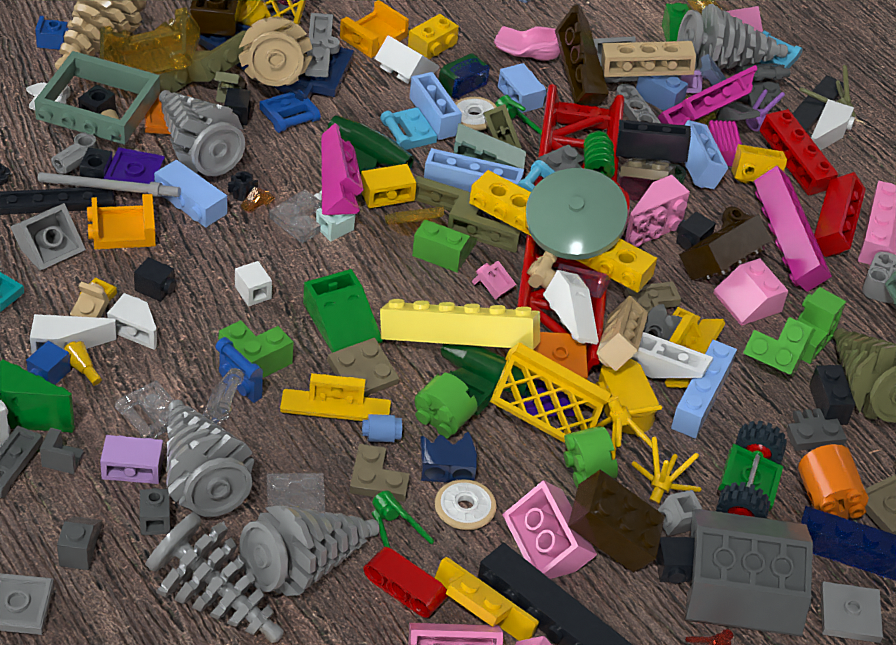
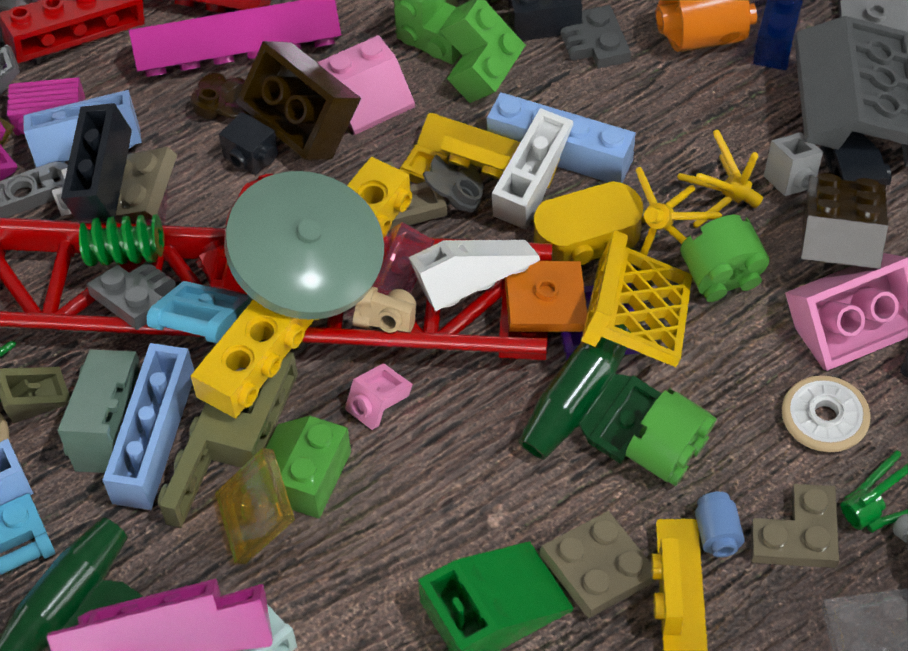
camera: 85 degrees left, 10 degrees up
(388, 185) = (173, 548): yellow brick -> none
(448, 461) = (766, 438): dark blue piece -> none
(460, 324) = (524, 416): light yellow brick -> none
(622, 333) = (553, 196): tan brick -> none
(657, 211) = (212, 169): bright pink slope -> none
(752, 471) = (712, 91): plate -> none
(754, 162) = (103, 60): yellow brick -> none

